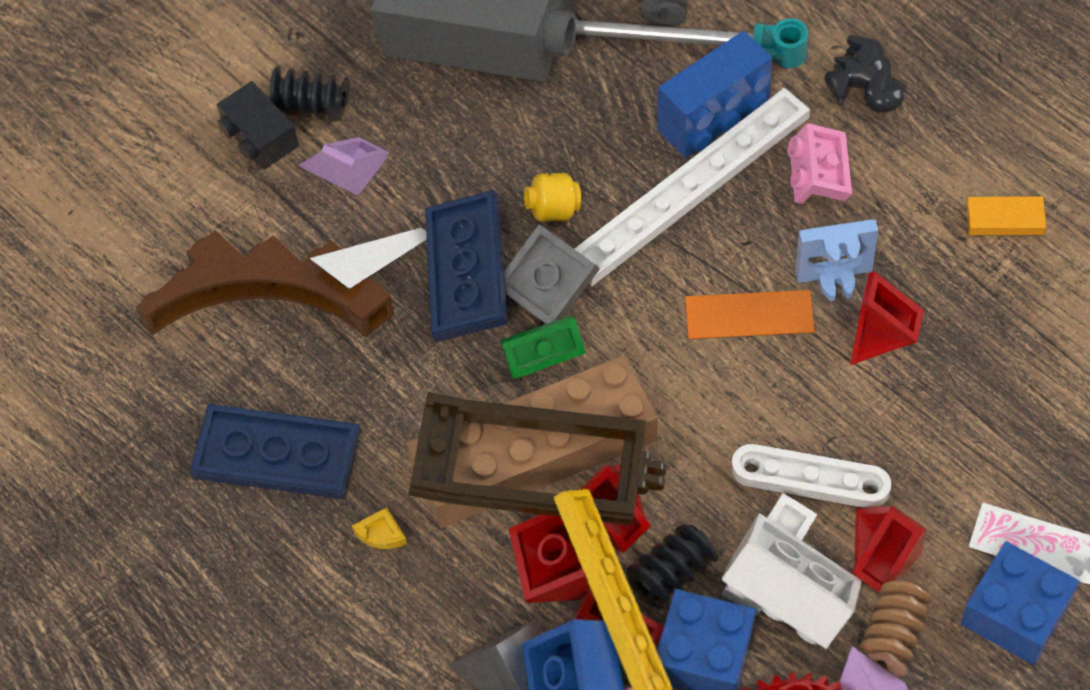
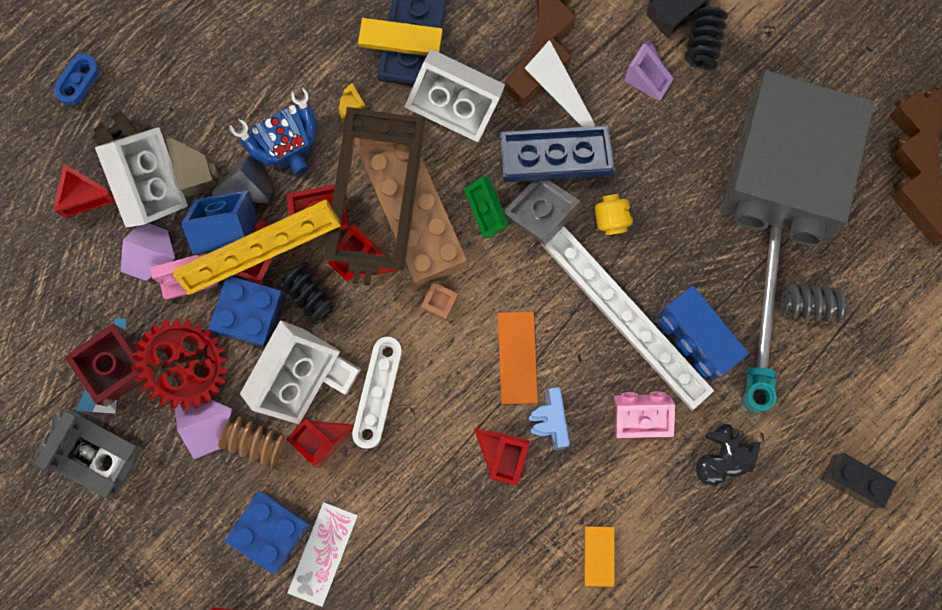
camera: 85 degrees right, 20 degrees up
(287, 459) = (399, 37): none -> yellow tile
(379, 384) = (454, 95): none -> white slope
(434, 607) = (283, 137): none -> torso
(677, 402) = (439, 301): none -> nougat plate

